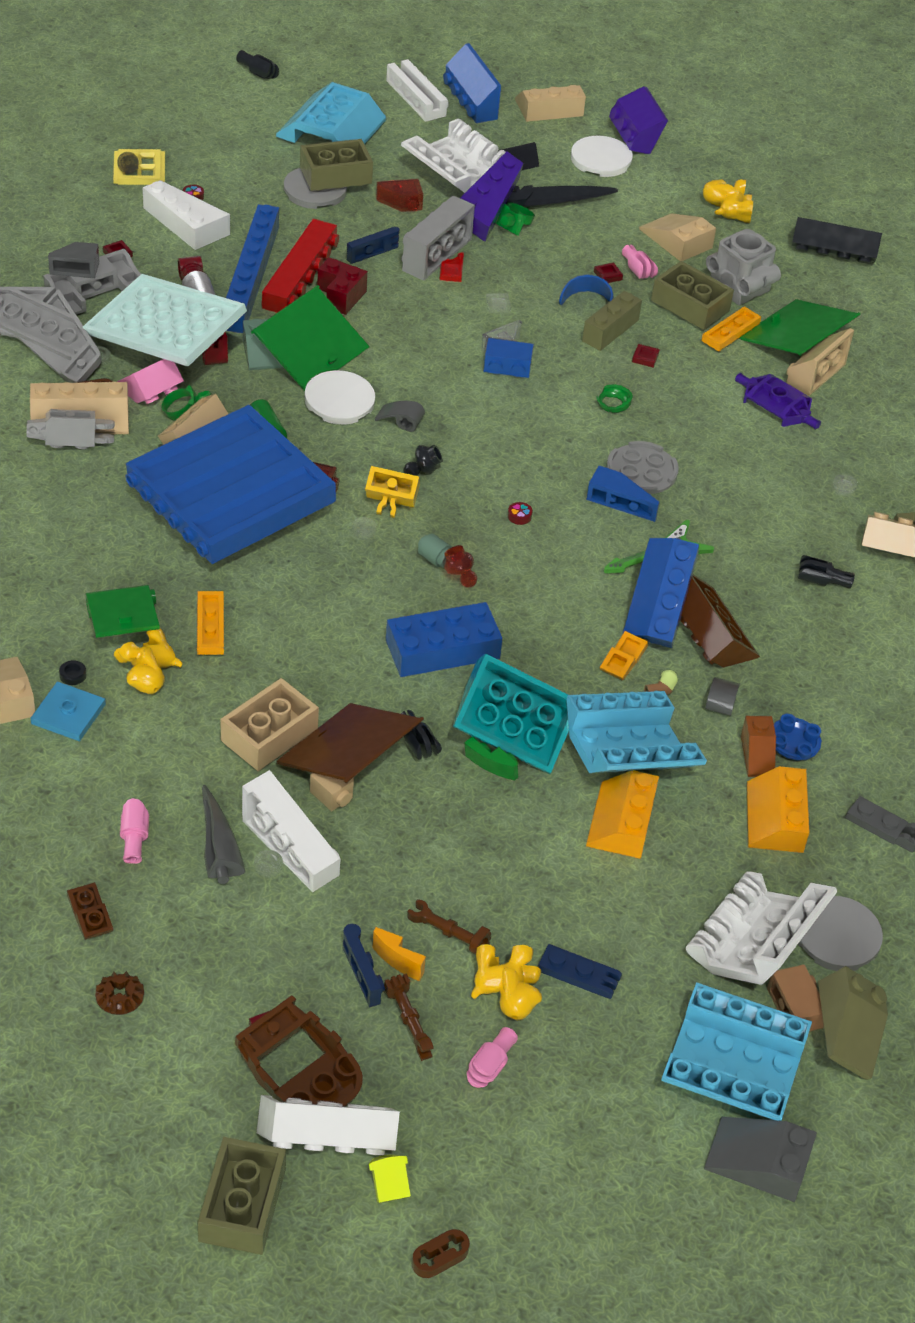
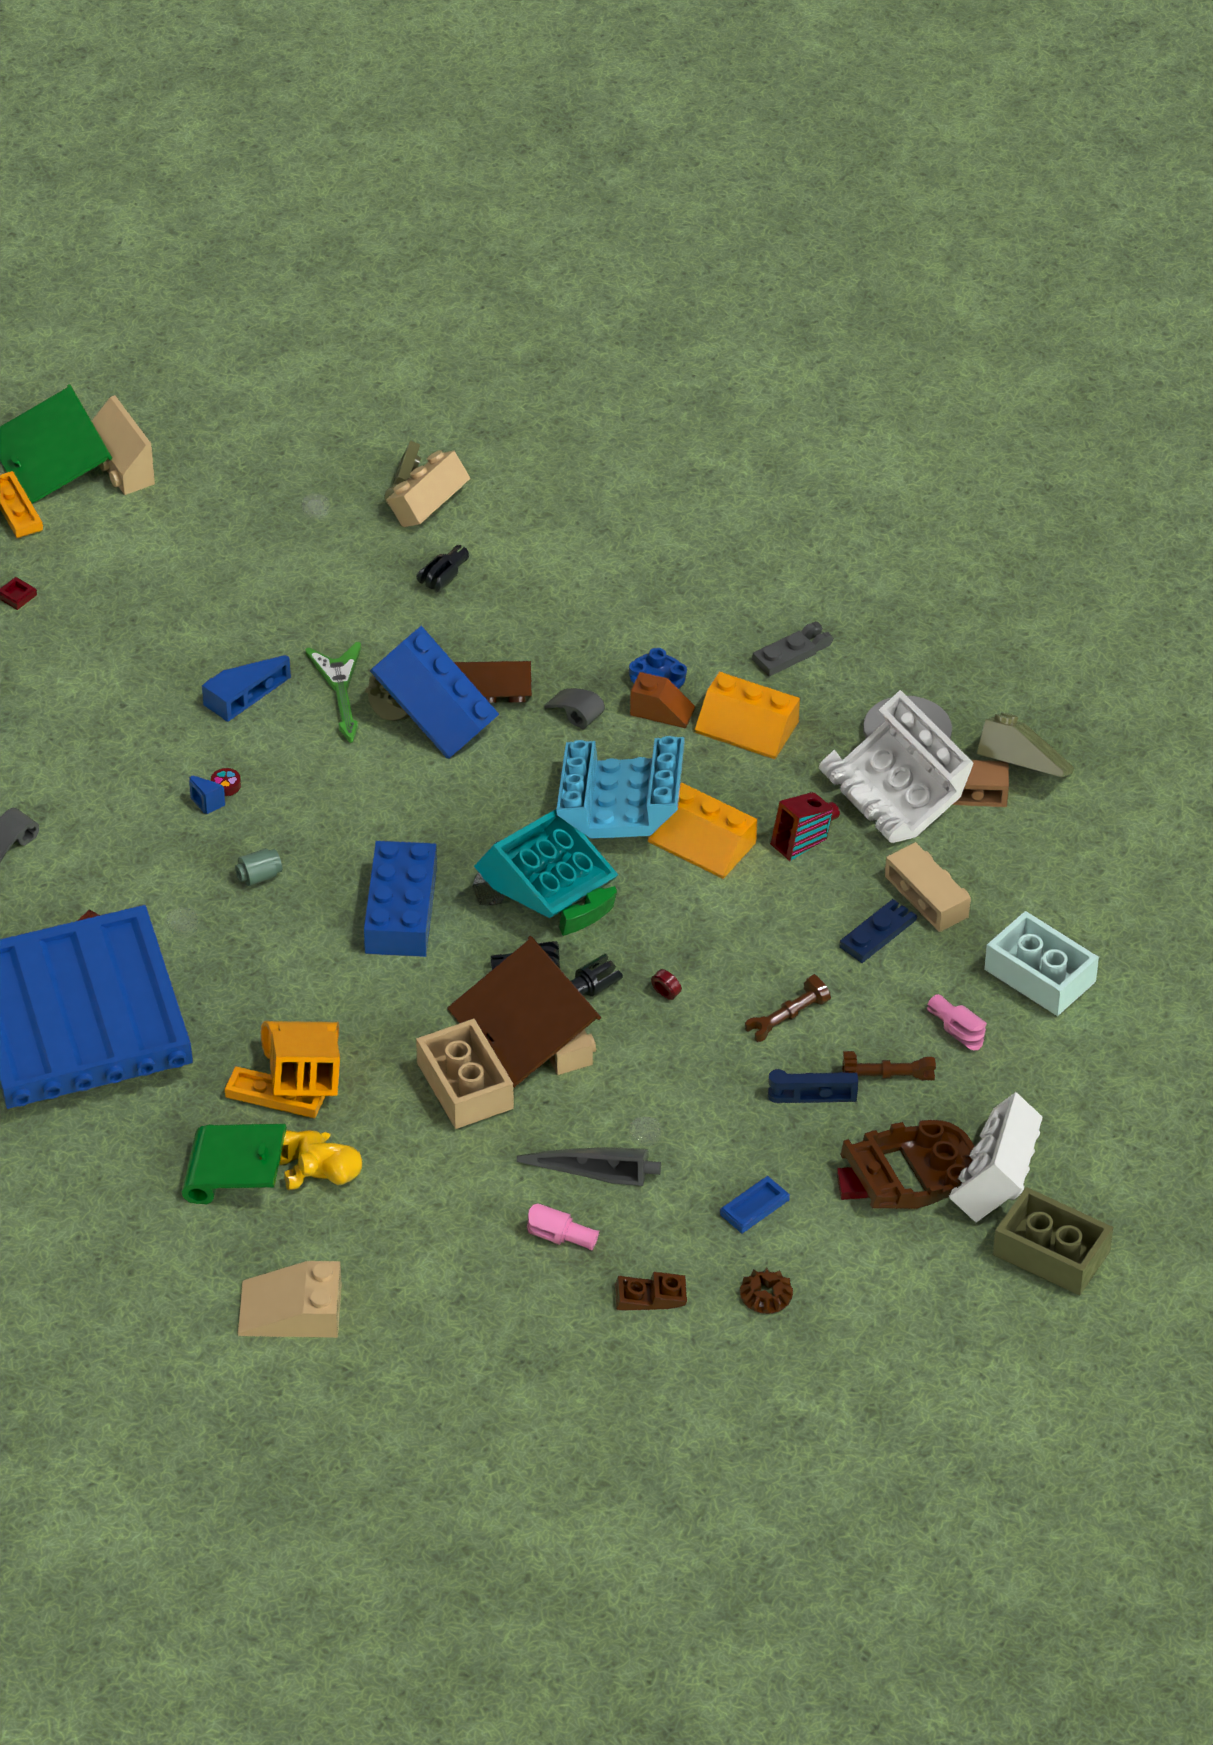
camera: 65 degrees left, 0 degrees up
(68, 711) = (357, 1248): dark azure plate -> none
(72, 672) = (292, 1235): black tile -> none
(216, 960) = (754, 1204): none -> blue tile
(241, 621) = (302, 1057): none -> light orange piece
(287, 830) = (616, 1096): white wedge -> none
(390, 949) = (806, 1058): light orange slope -> none
(390, 1177) = (1064, 1132): neon yellow tile -> none
(392, 488) = (145, 874): yellow brick -> none
(415, 780) = (596, 976): none -> black arm
(426, 460) = (103, 831): black animal -> none
(435, 832) = (666, 984): none -> dark red tile
(443, 1259) = (1147, 1123): reddish brown beam -> none
(460, 563) = (296, 850): clear red animal -> none
(493, 503) = (206, 794): none -> blue slope
(509, 979) = (876, 979): yellow animal -> none
(588, 1103) = (1041, 963): none -> light aqua brick
(615, 391) = (79, 632): green piece -> none
(624, 655) = (483, 765): light orange slope -> none
(645, 465) = (200, 654): light grey tile -> none
(645, 993) = (927, 886): none -> tan brick
(666, 683) = (542, 747): arm -> none
(667, 877) = (802, 824): none -> dark red torso
(737, 1052) = (1021, 847): medium azure slope -> none
(762, 1154) = (1133, 864): dark grey slope -> none
(791, 407) = (134, 514): dark purple plate -> none

